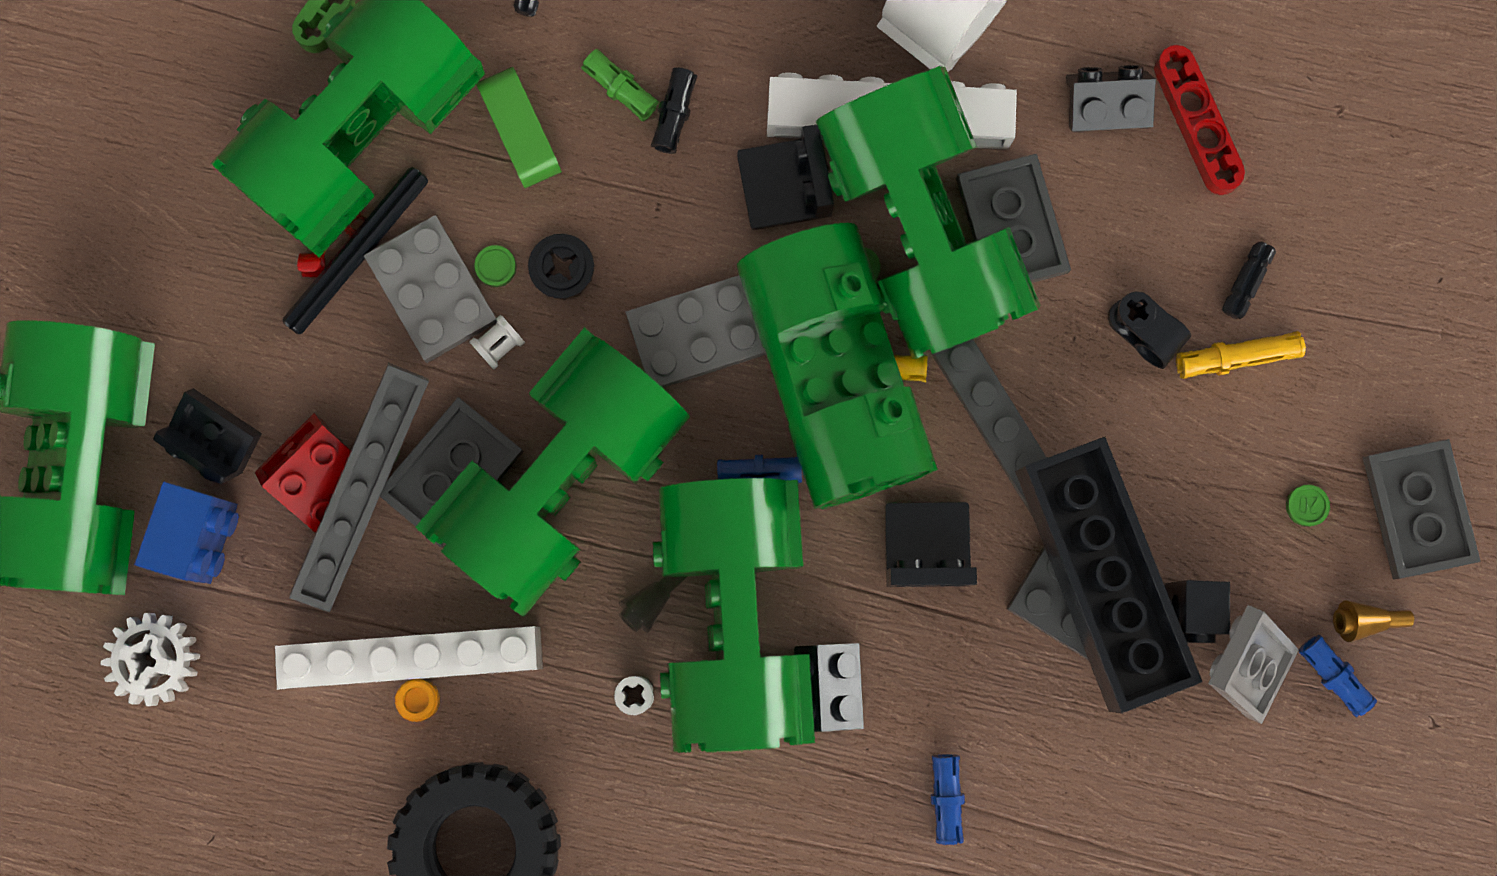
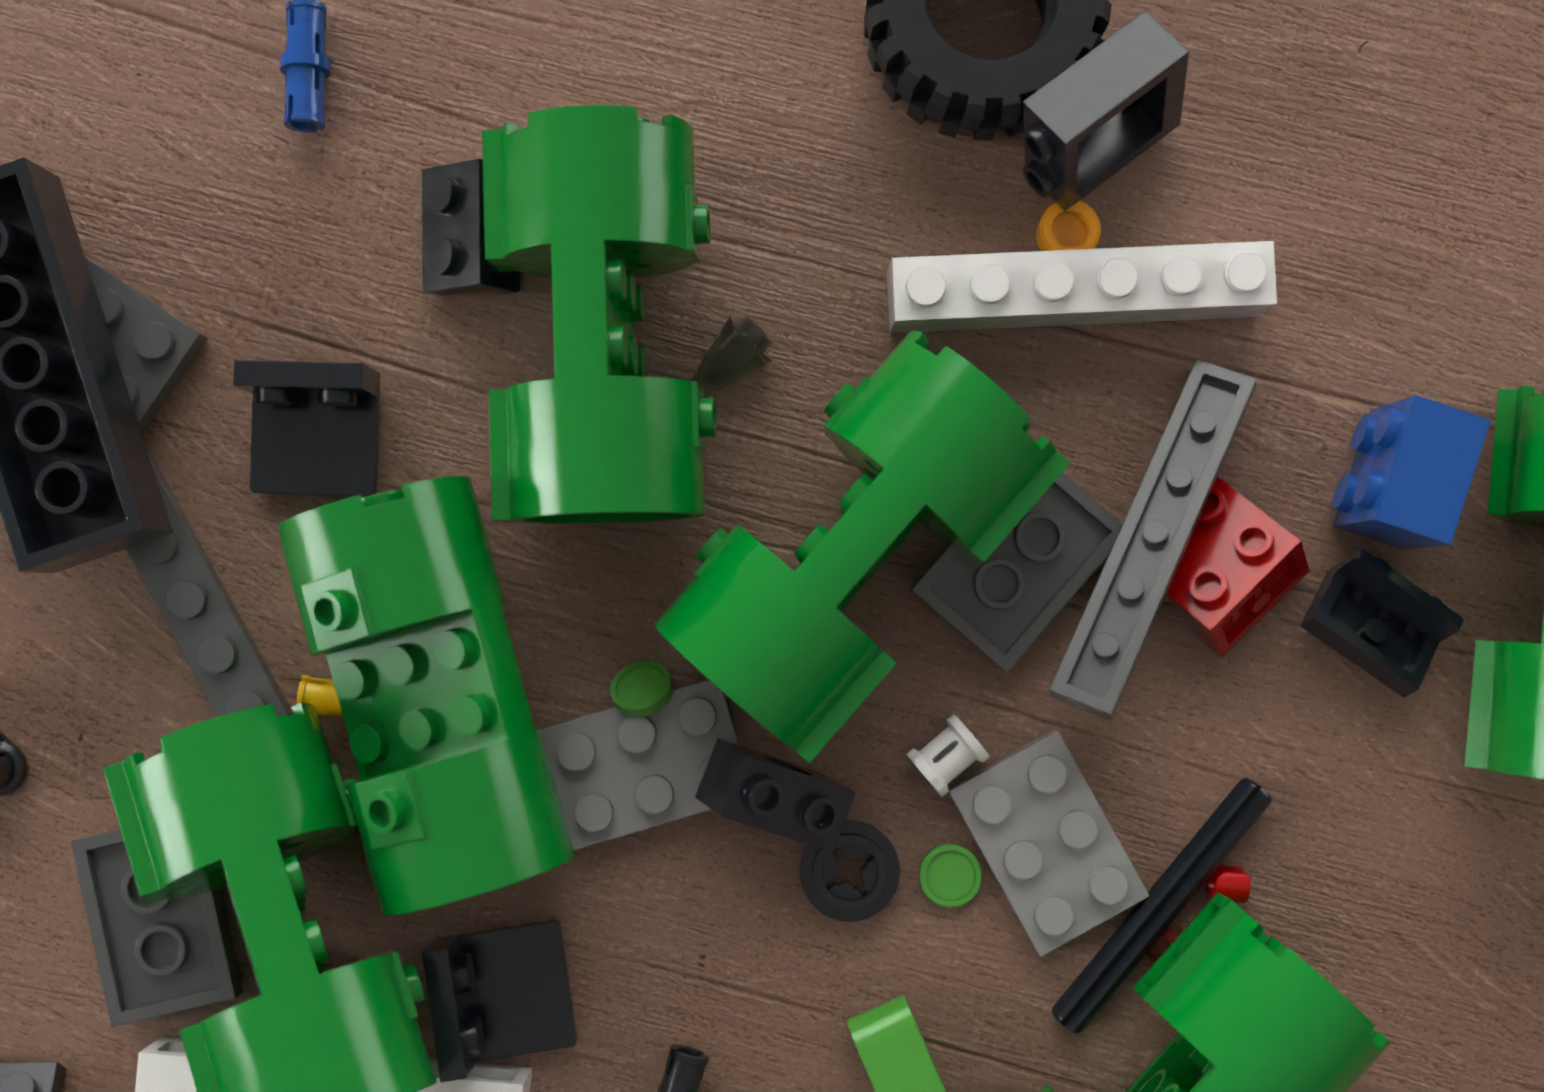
camera: 175 degrees left, 5 degrees up
(142, 674) = (1481, 285): white gear -> none
(392, 775) = (1104, 111): none -> black window
(609, 311) = (774, 795): none -> black brick
(621, 696) = (751, 205): white bush -> none
(701, 380) = (641, 688): none -> bright green piece
(760, 467) = (558, 548): blue pin -> none

